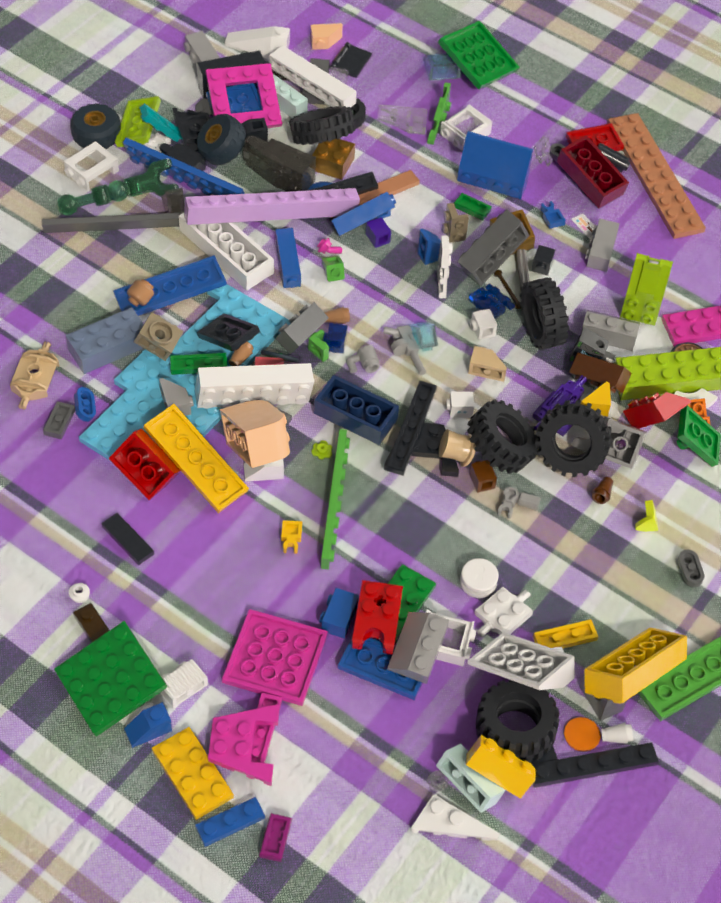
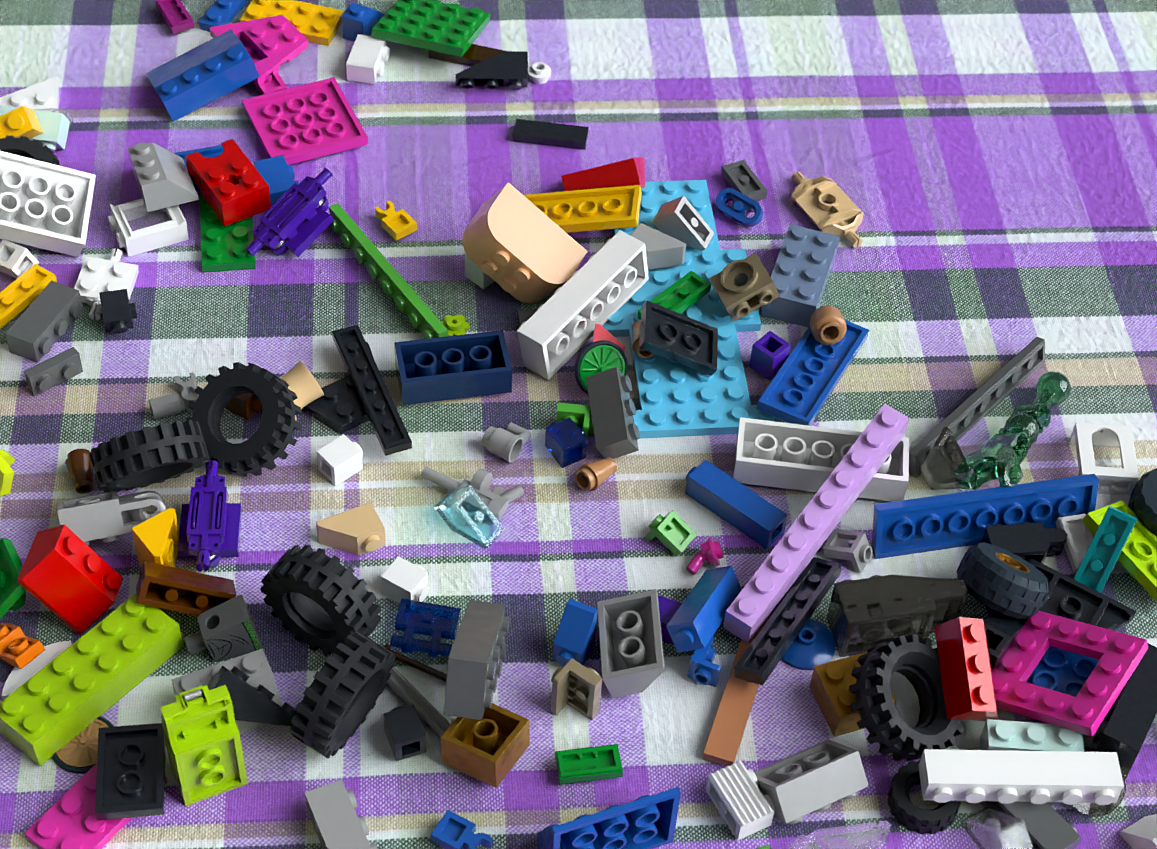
camera: 140 degrees right, 5 degrees down
(111, 603) = (502, 70): none -> black slope
(140, 402) = (683, 223): none -> light grey slope
(184, 306) = (769, 355): none -> dark purple brick
(289, 109) = (966, 670): none -> red slope
(313, 740) = (203, 74): none -> blue slope
(359, 563) = (294, 218): none -> dark purple piece
(387, 145) = (812, 780): none -> slope
(405, 223) = (630, 642): none -> light grey slope
(424, 155) = (740, 800): none -> white brick
(443, 263) = (525, 601): white wing -> none
(479, 578) = (158, 295): white head -> none
(514, 576) = (117, 311): none -> black brick
(562, 602) = (44, 321): none -> dark grey brick
(564, 253) = (342, 694): none -> black tyre
(579, 562) = (53, 371): none -> dark grey plate
(607, 305) = (252, 703): none -> black slope
(680, 314) = (130, 771): none -> black plate

